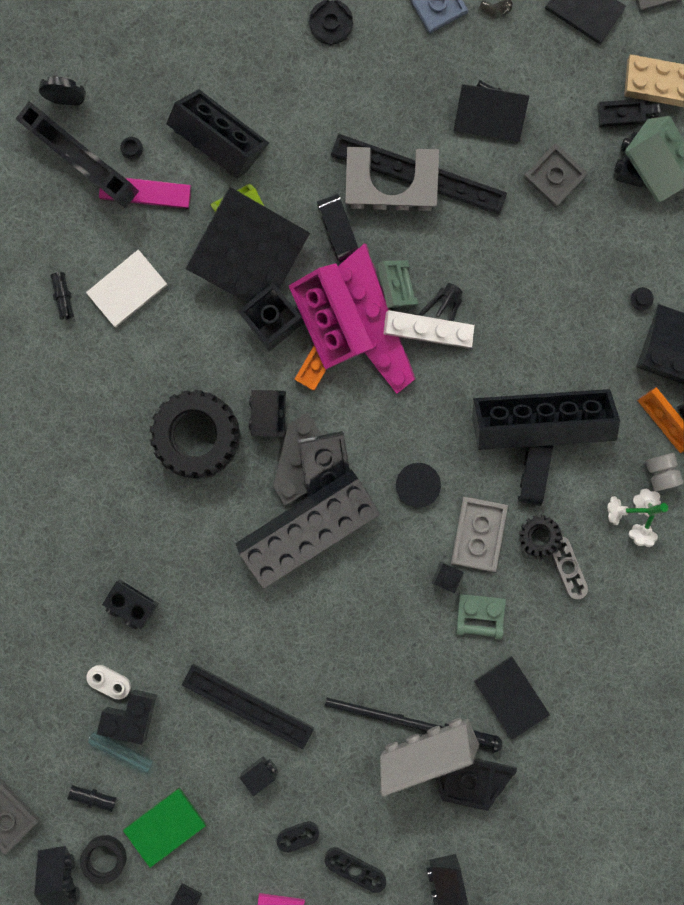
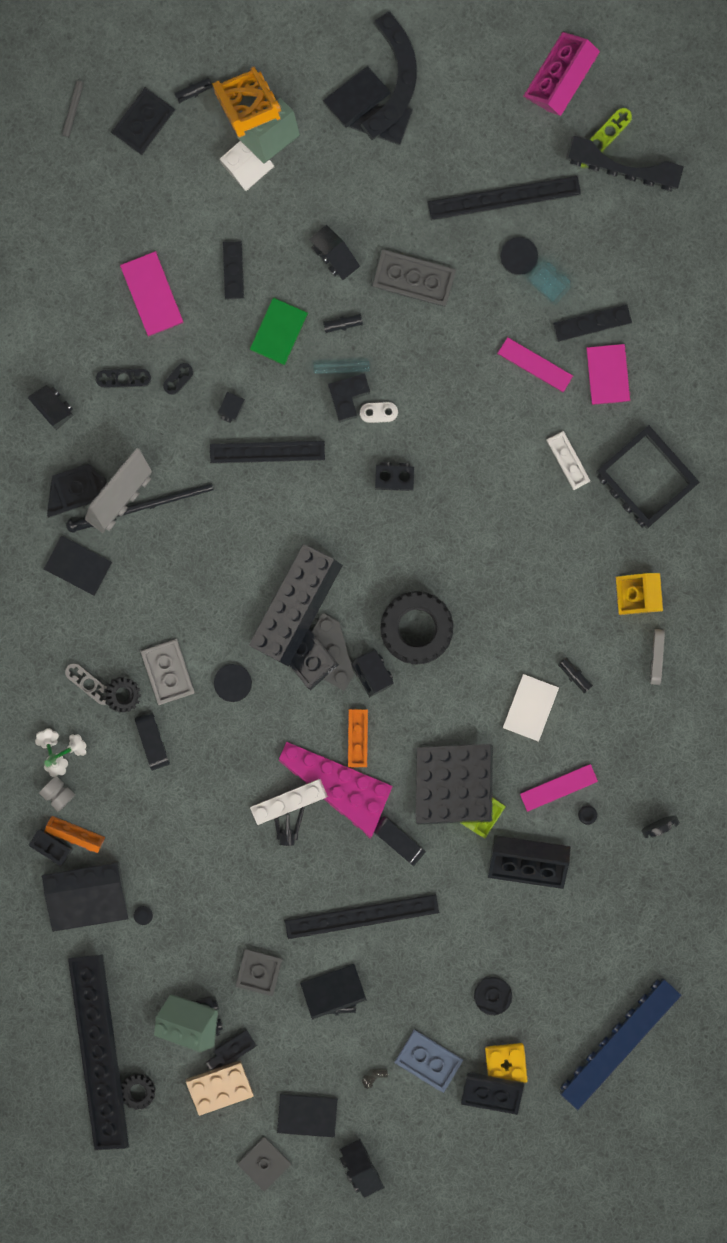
camera: 150 degrees right, 0 degrees up
(77, 155) = (620, 785): black arch -> none
(98, 877) = (310, 270): black tyre -> none
(271, 316) = (410, 745): black slope -> none
(330, 315) = (365, 769): dark pink slope -> none
(397, 284) = (331, 822): sand green plate -> none
(420, 194) = (395, 877): light grey arch -> none
(447, 577) = (173, 627): black brick -> none
(480, 608) = (136, 618): sand green plate -> none
(545, 419) = (167, 782): black brick -> none

